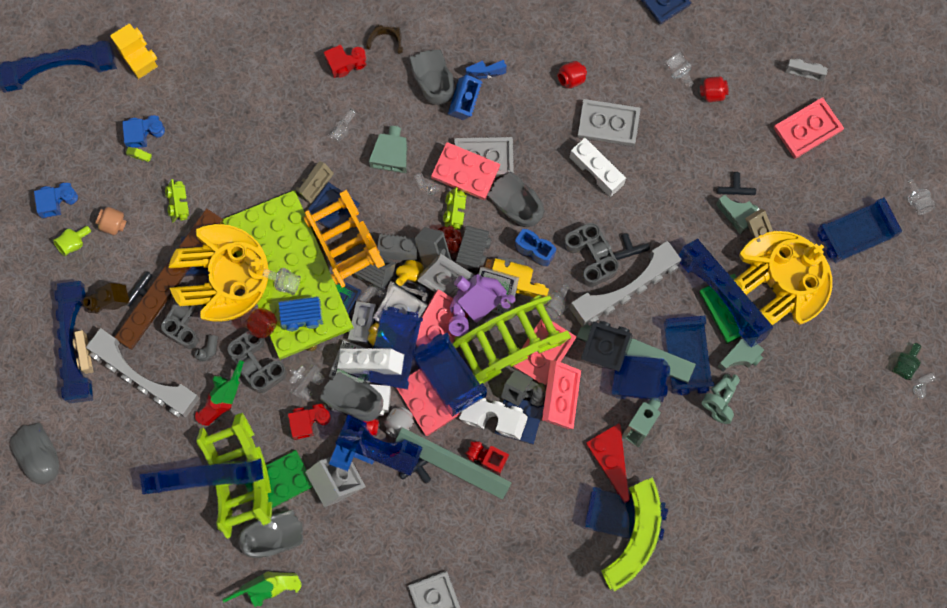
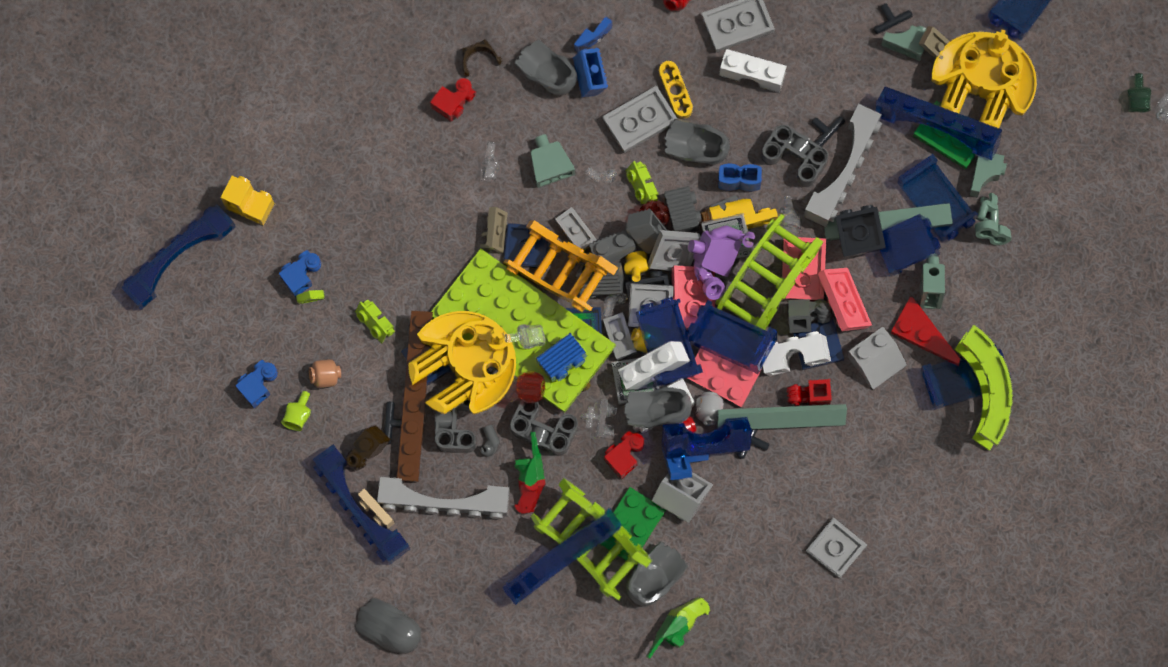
camera: 25 degrees left, 0 degrees up
(378, 216) = (575, 229): none -> light grey plate
(465, 171) = (632, 141): coral plate -> none
(534, 137) = (675, 74): none -> yellow beam
(561, 459) = (877, 358): none -> light grey slope

